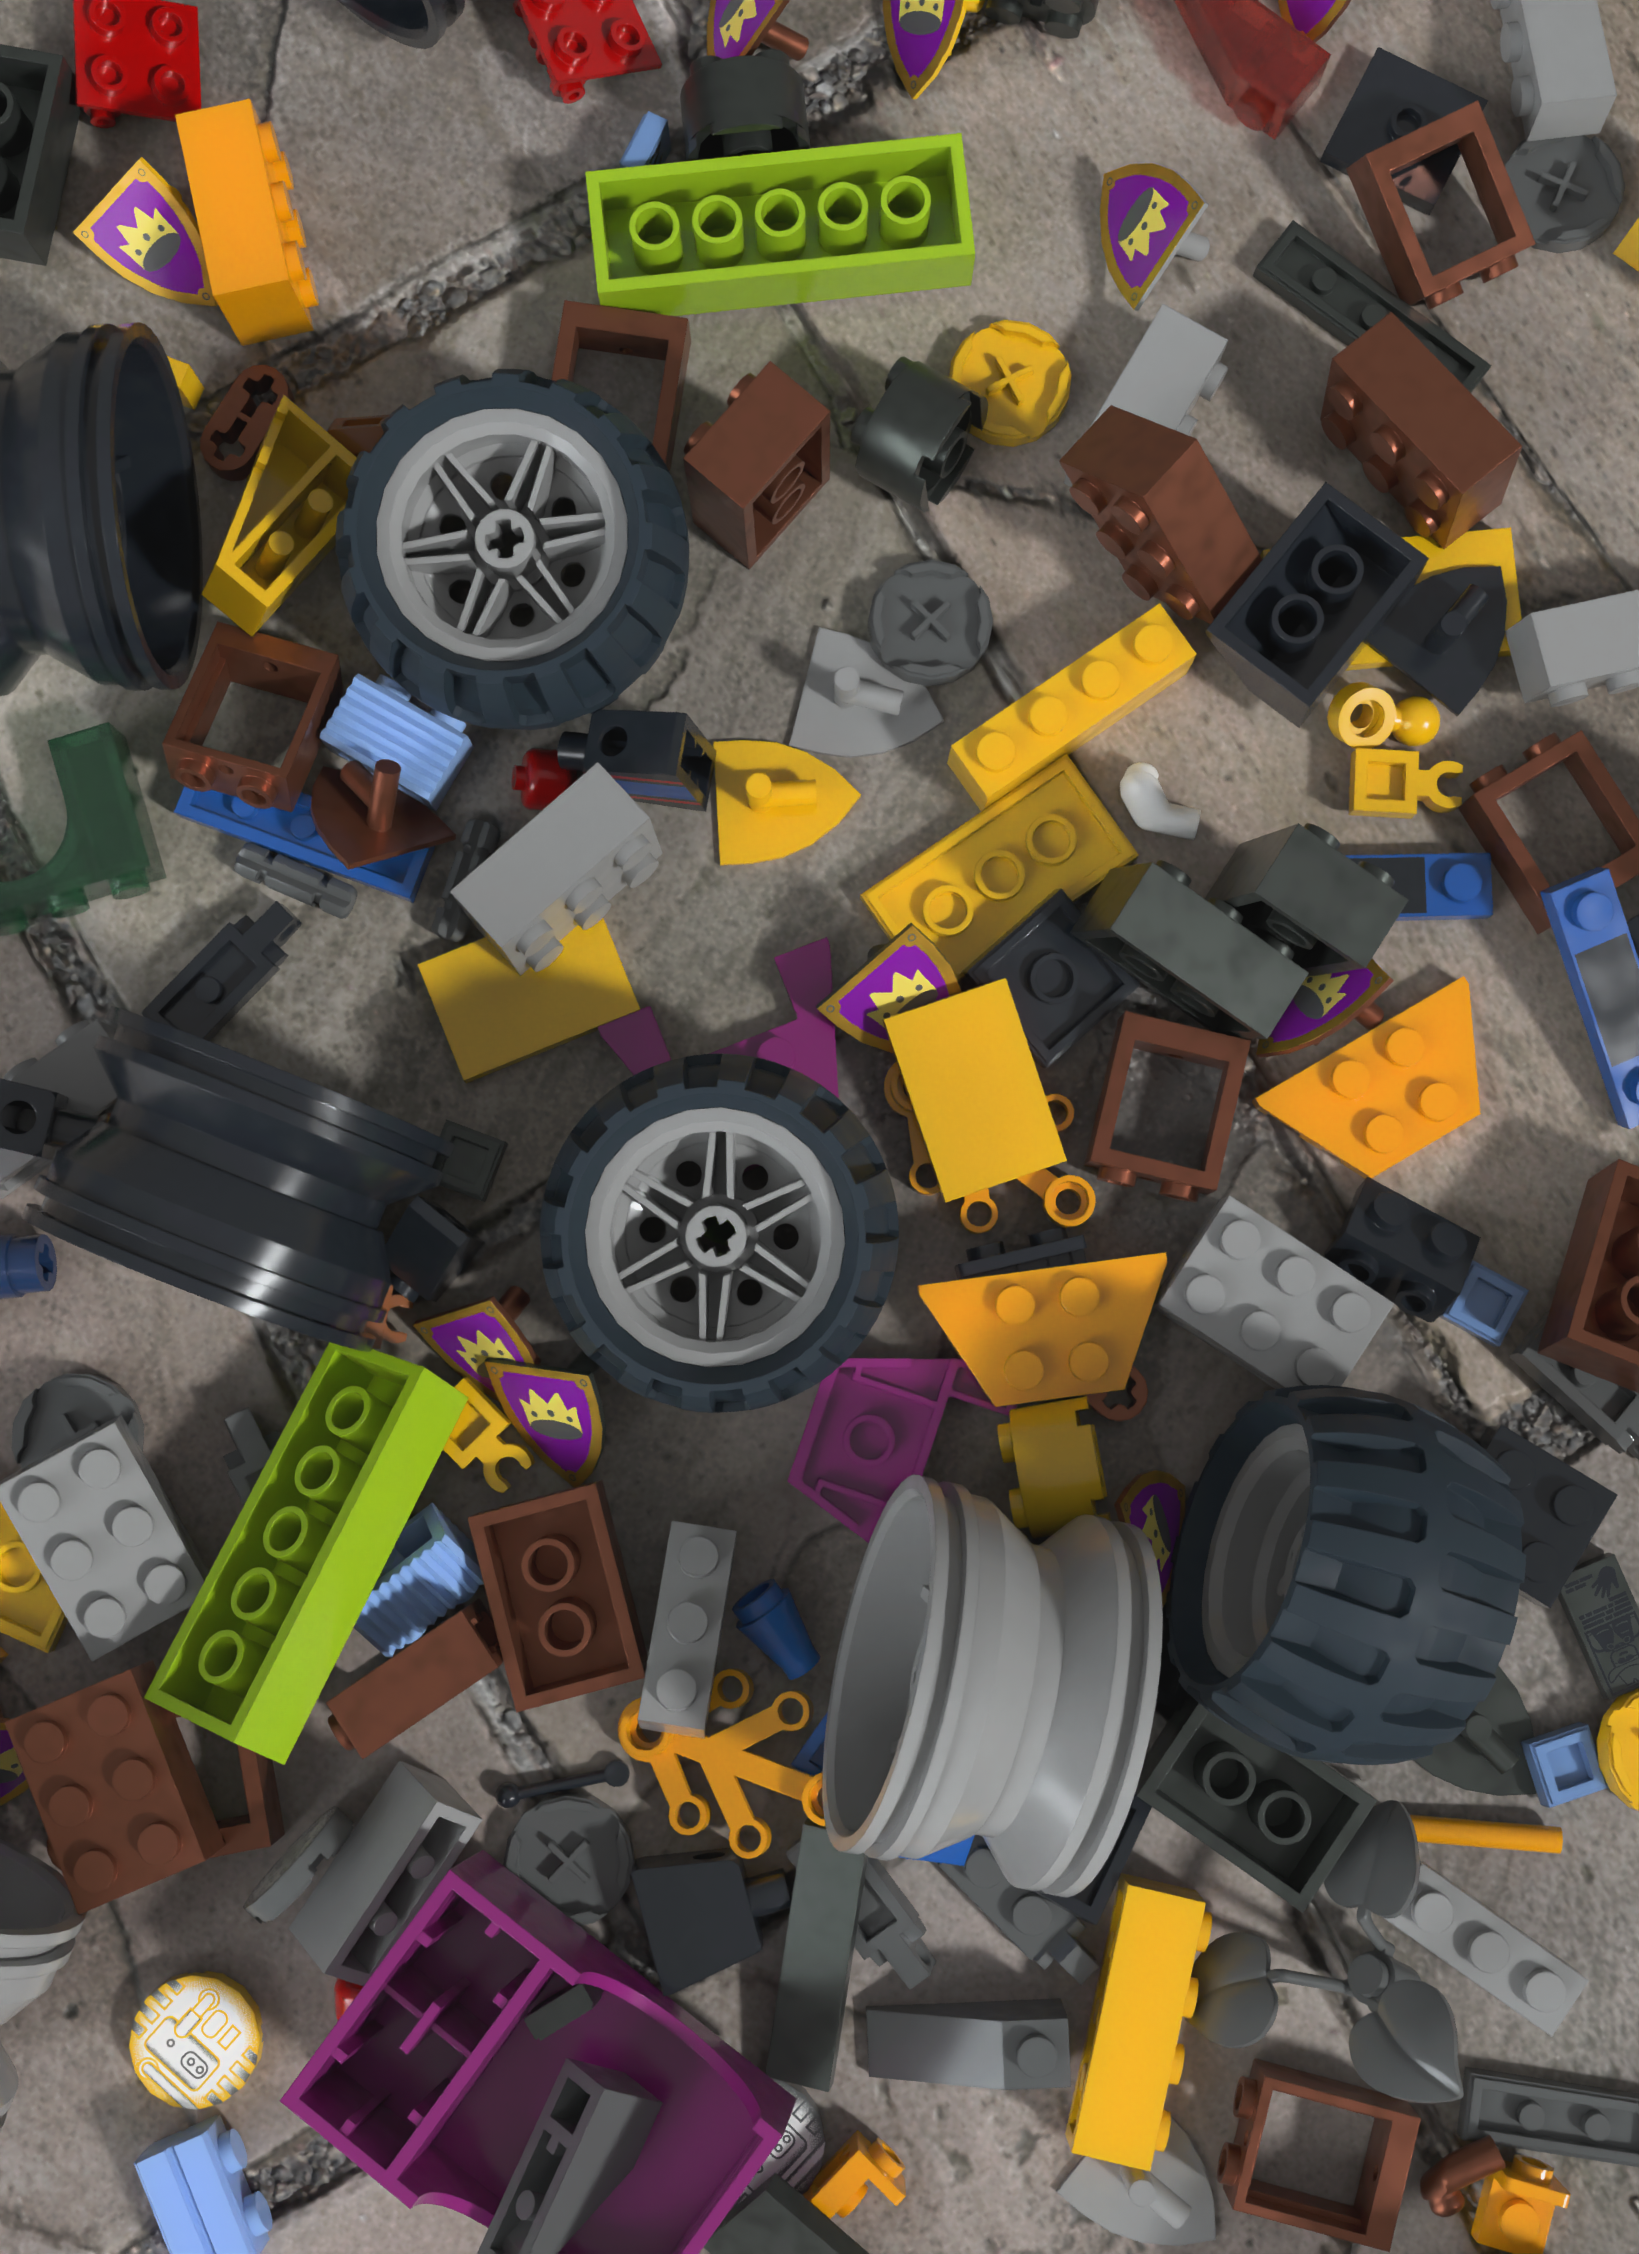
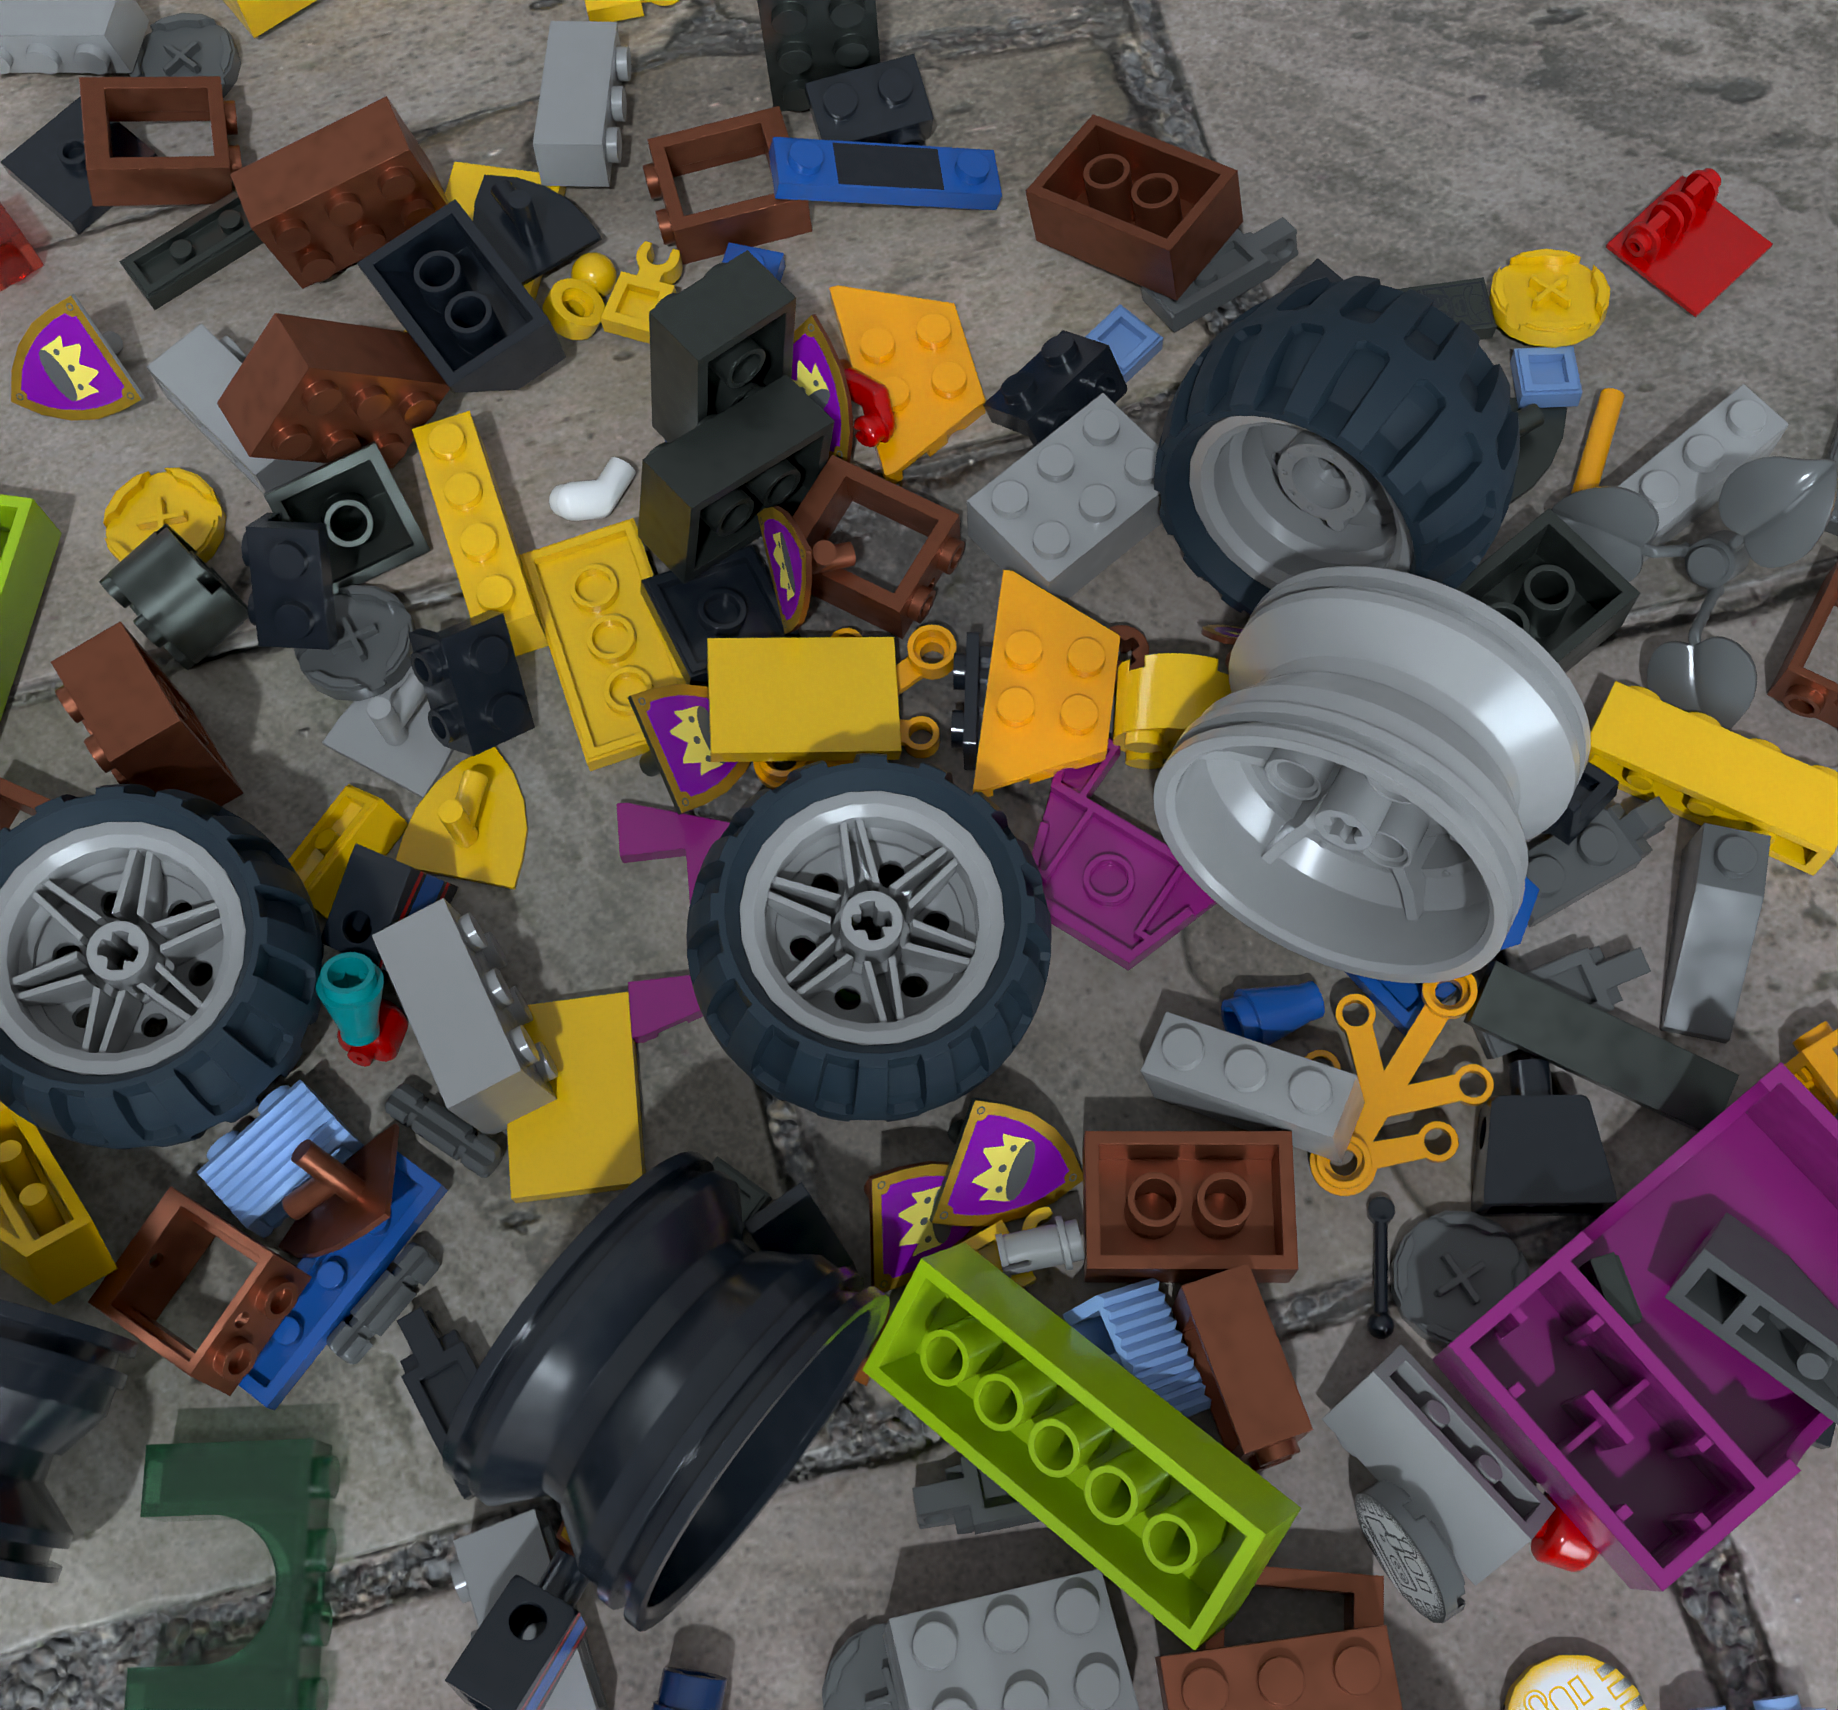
camera: 70 degrees left, 15 degrees down
(484, 1467) = (1041, 1247): none -> light grey pin
(550, 758) = (352, 994): none -> teal cone
(712, 686) = (325, 851): none -> yellow slope
(899, 760) = (471, 683): none -> black bracket
(956, 542) = (290, 583): none -> black bracket
(1050, 572) = (363, 513): none -> pearl dark grey slope
(1102, 1042) = (794, 562): none -> shield
(1326, 1068) = (878, 419): none -> red arm

